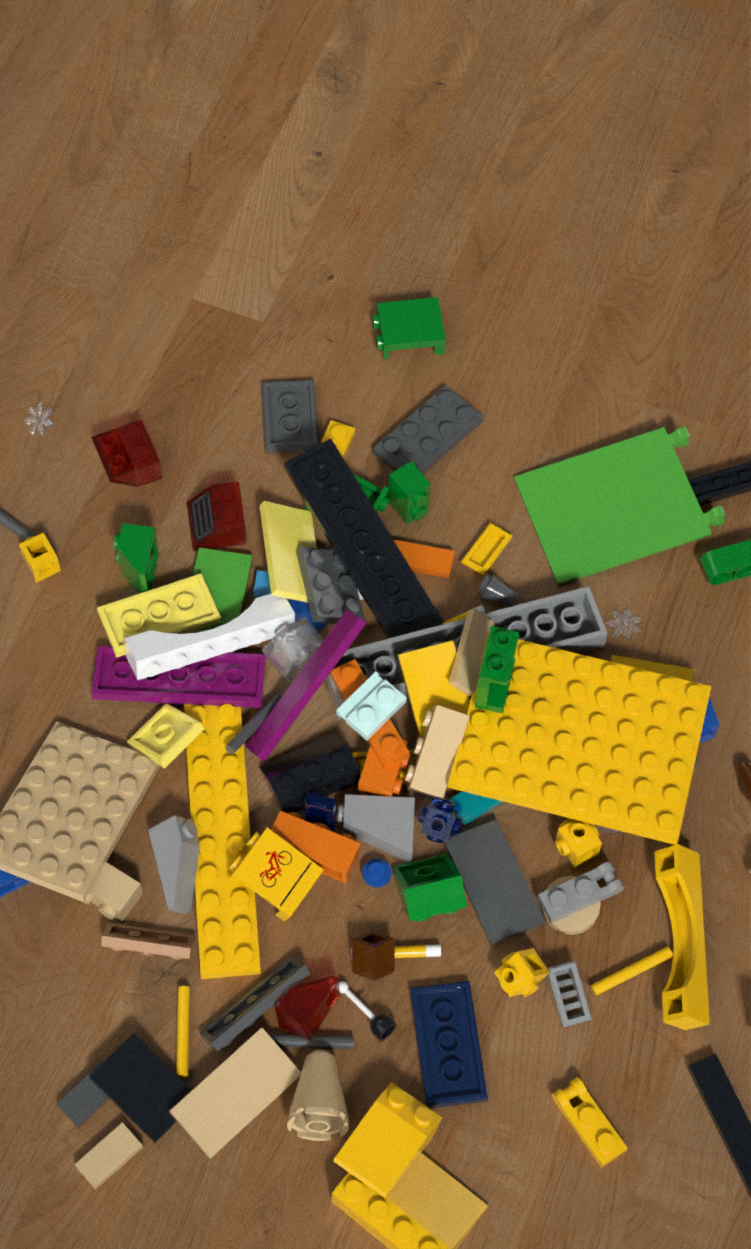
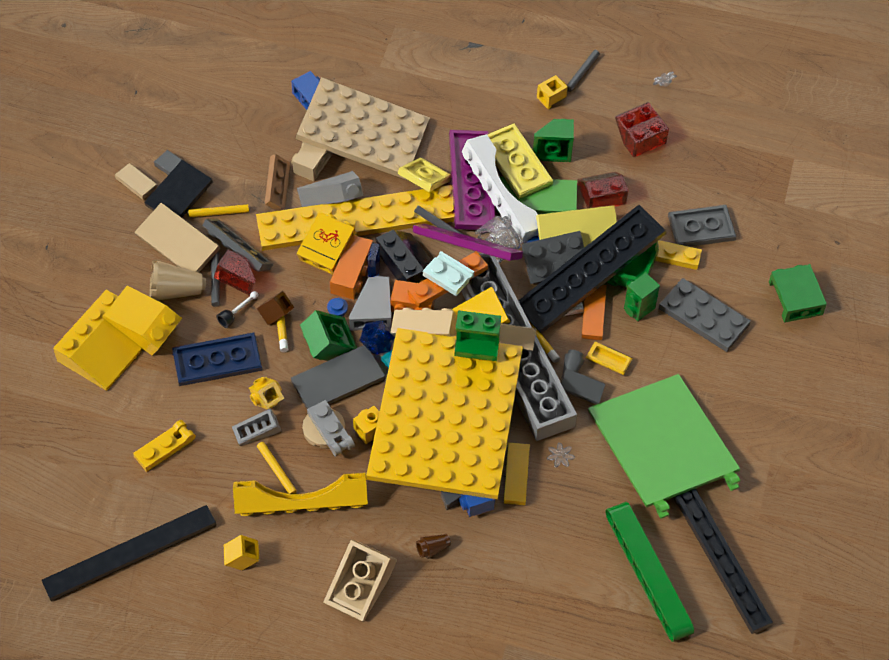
camera: 85 degrees right, 5 degrees down
(532, 581) = (582, 386): none -> dark grey tile

